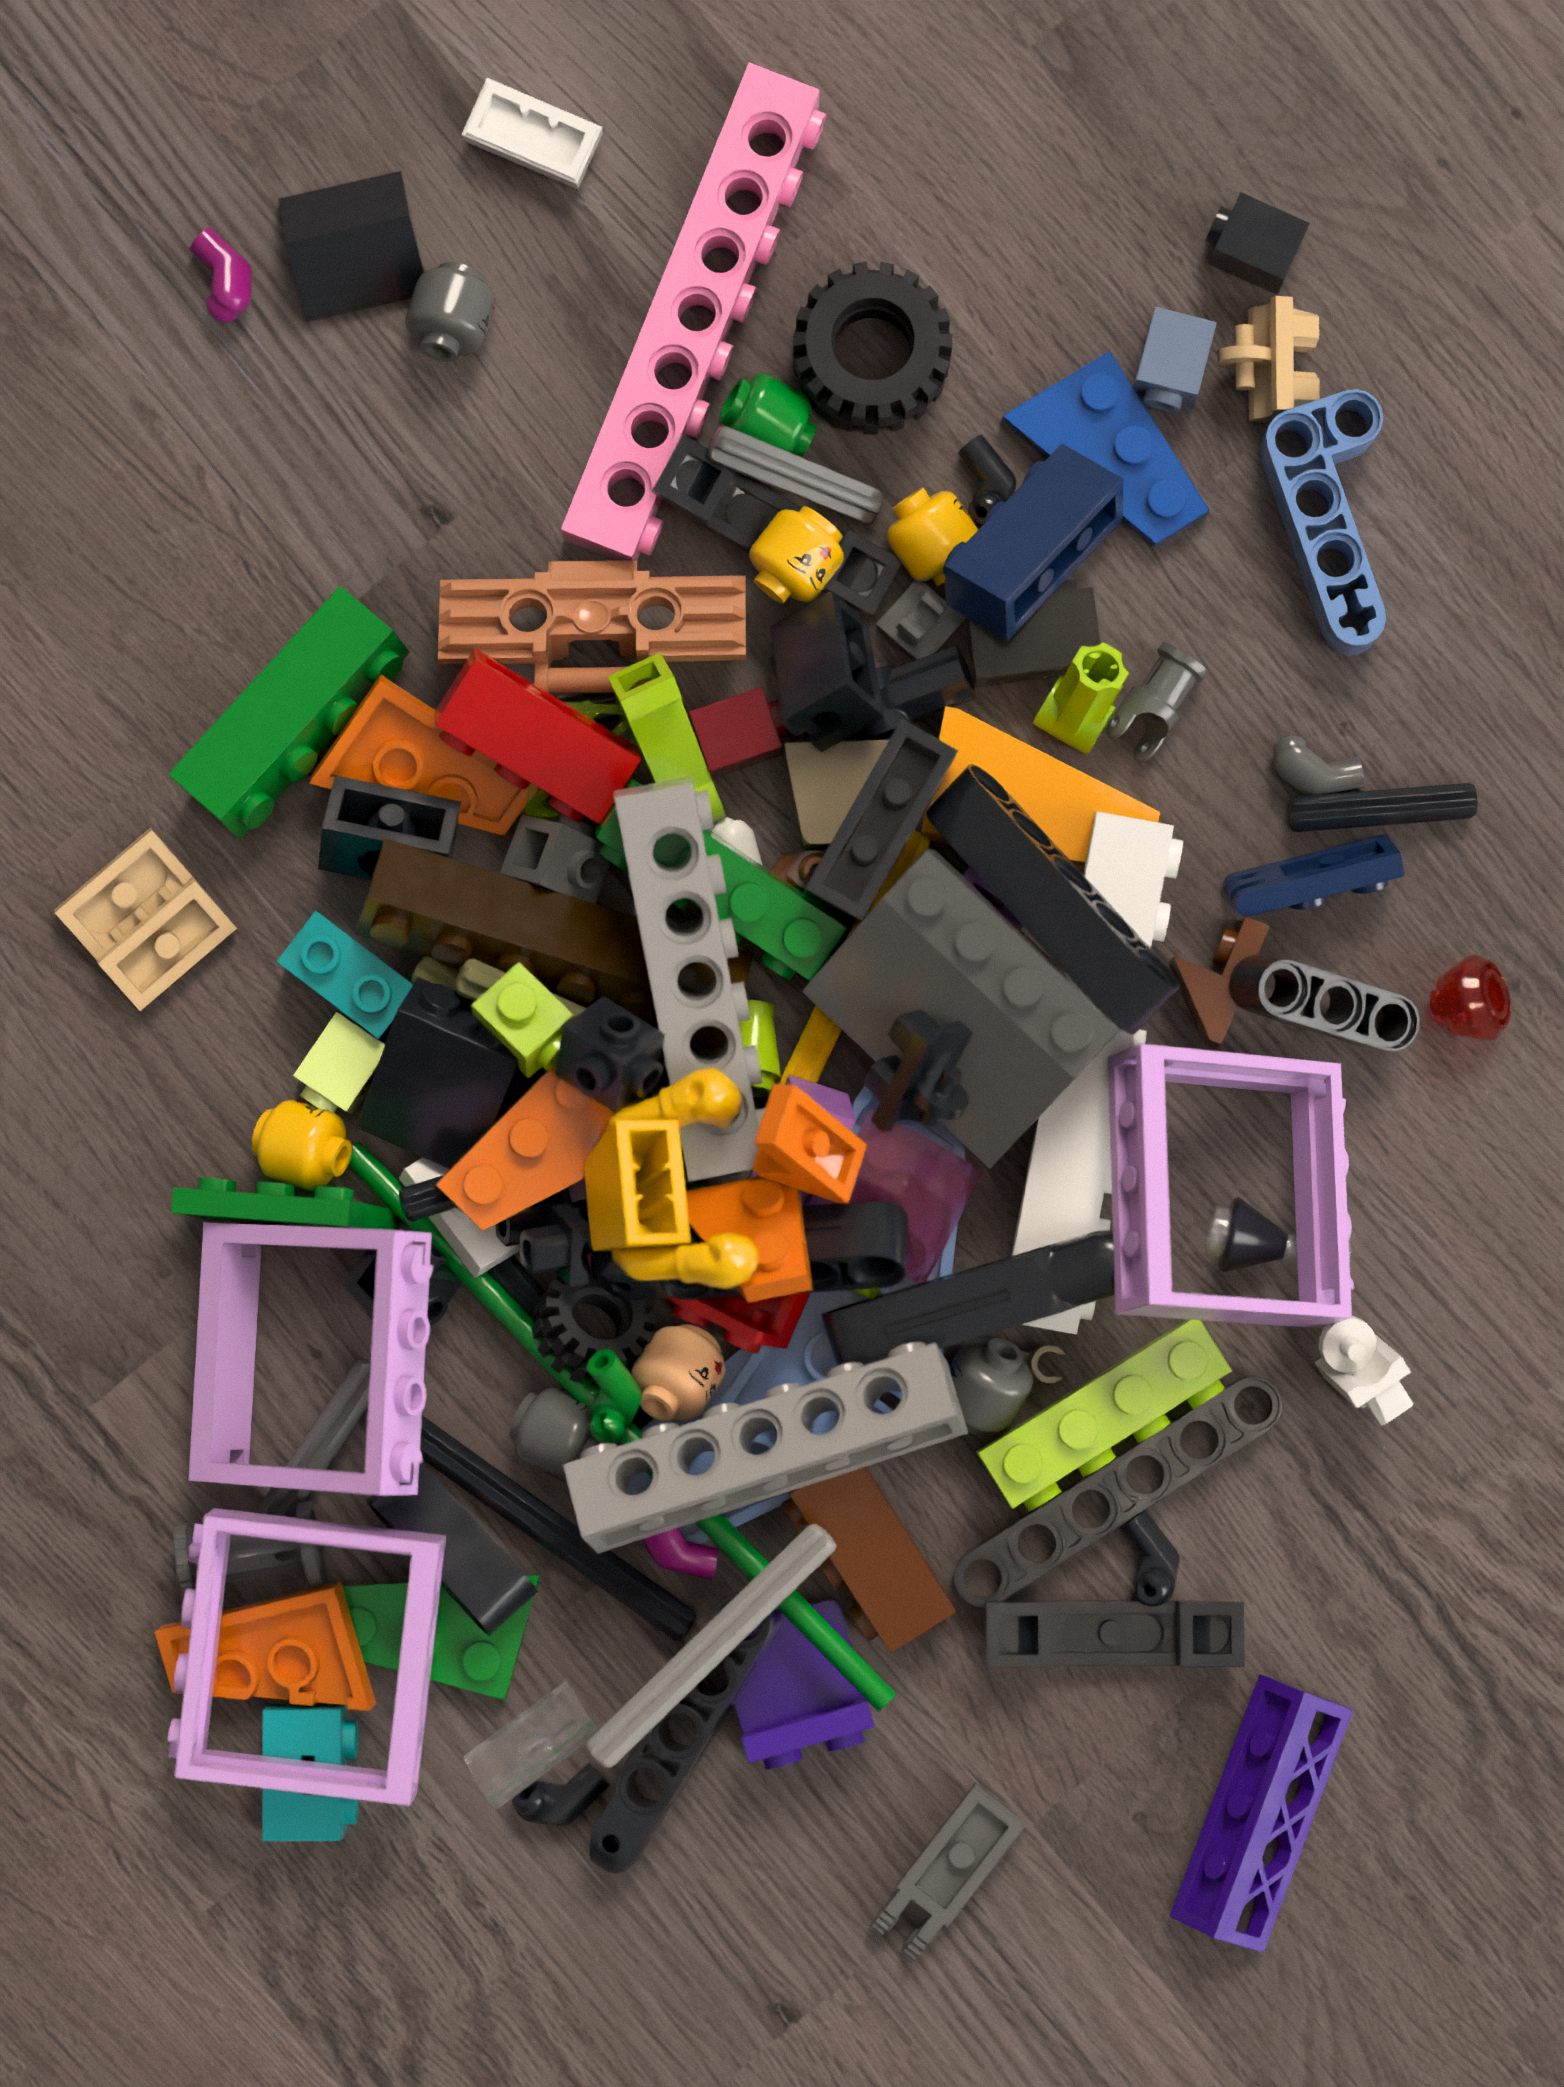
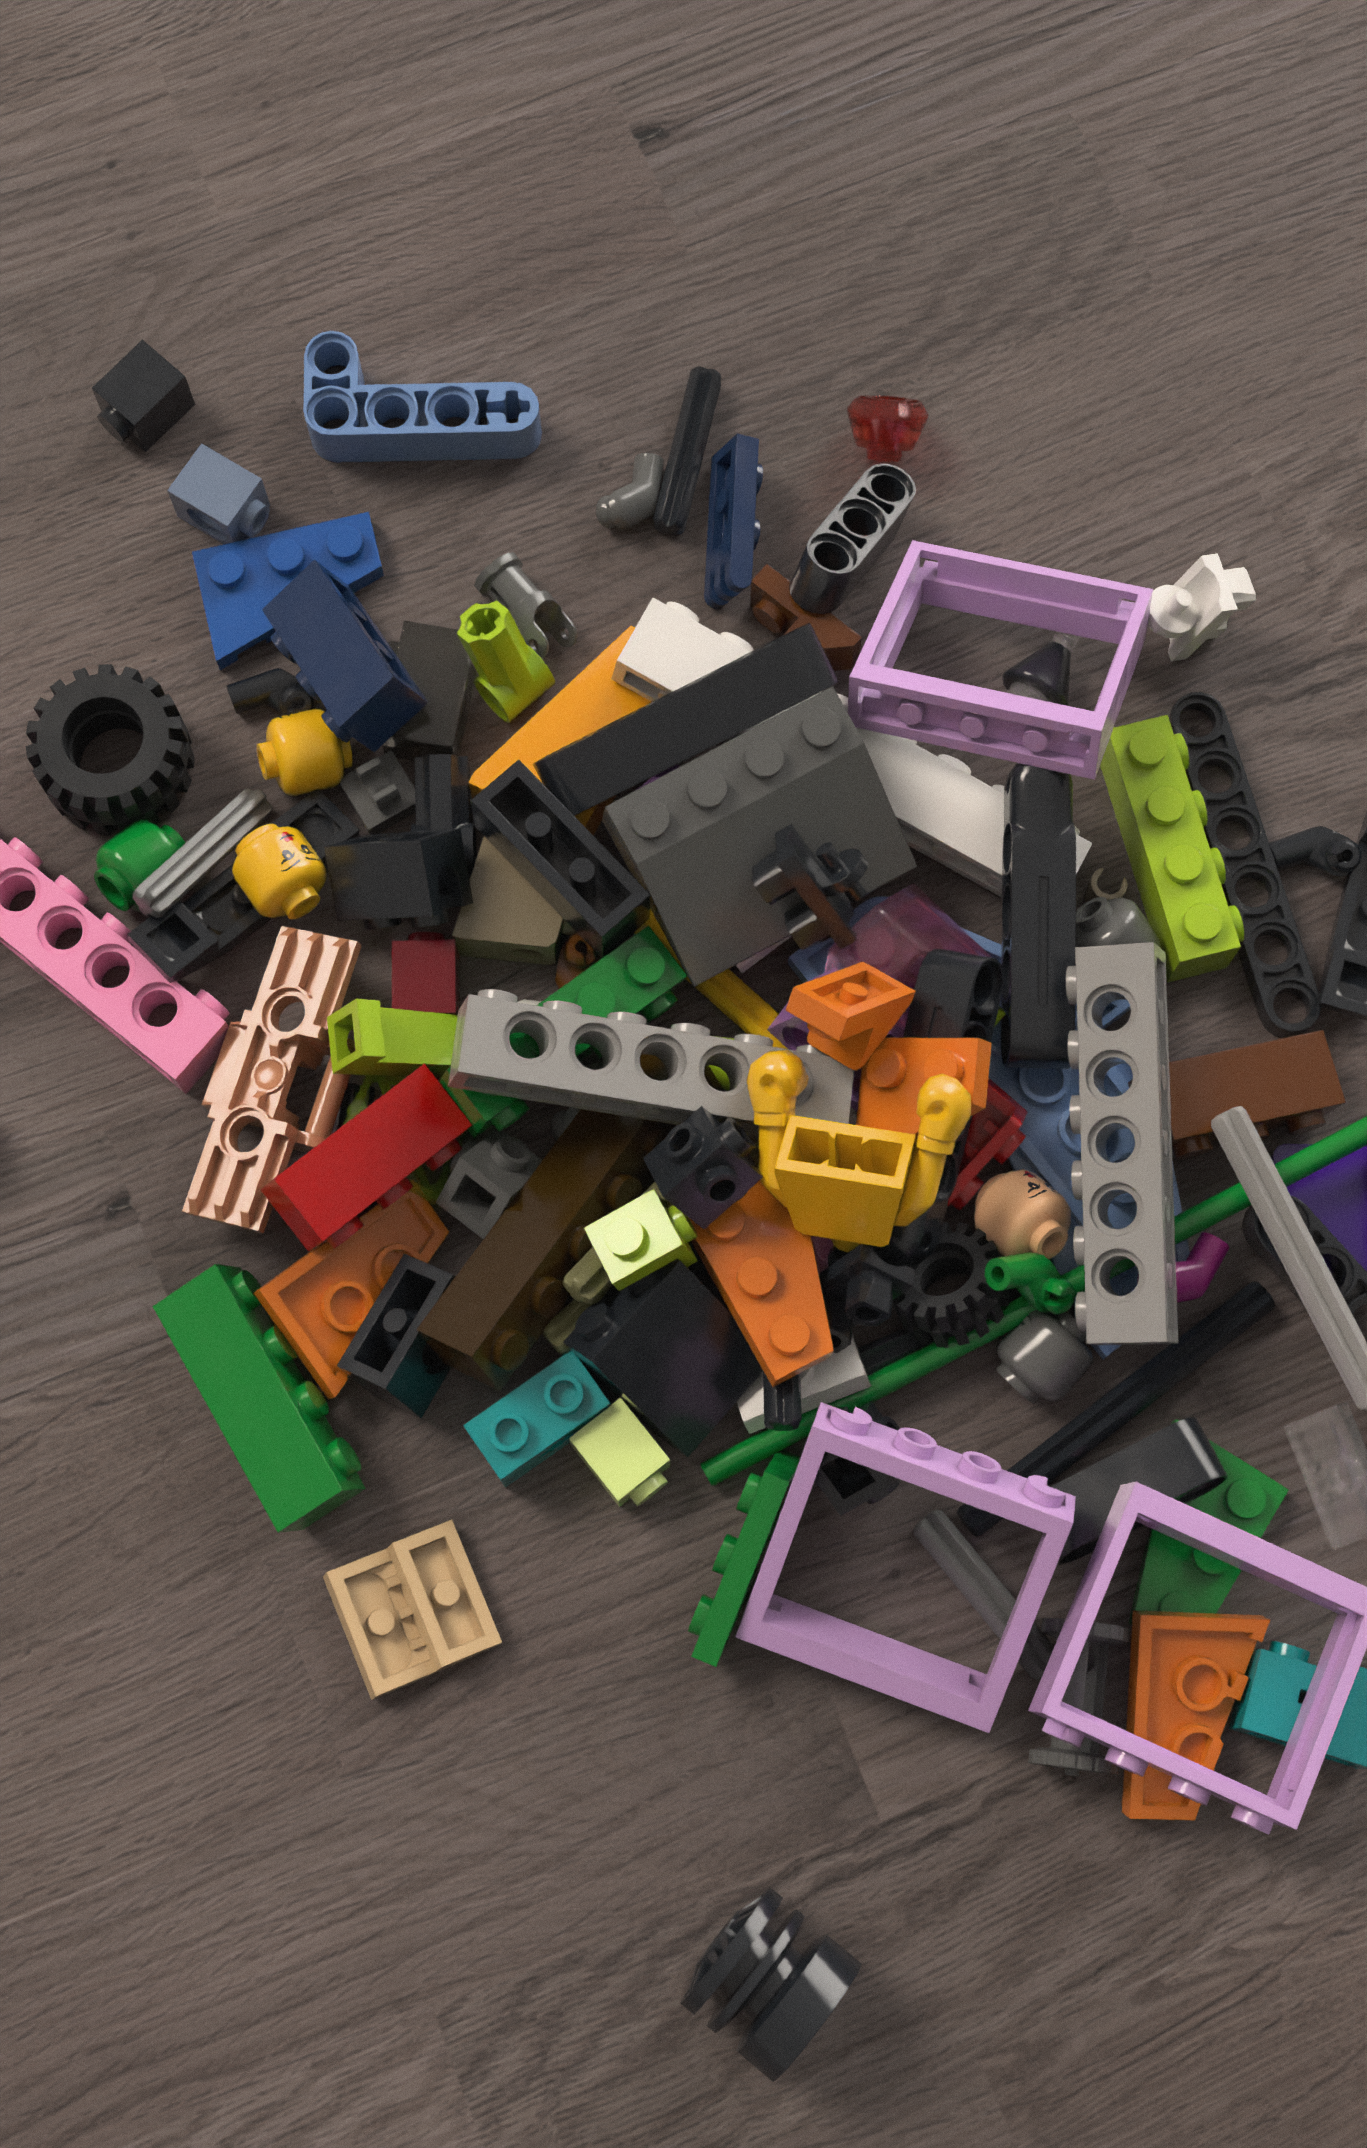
camera: 75 degrees left, 10 degrees down
(301, 1144) = (687, 1518): yellow head -> none
(1266, 358) = (250, 417): tan hips -> none

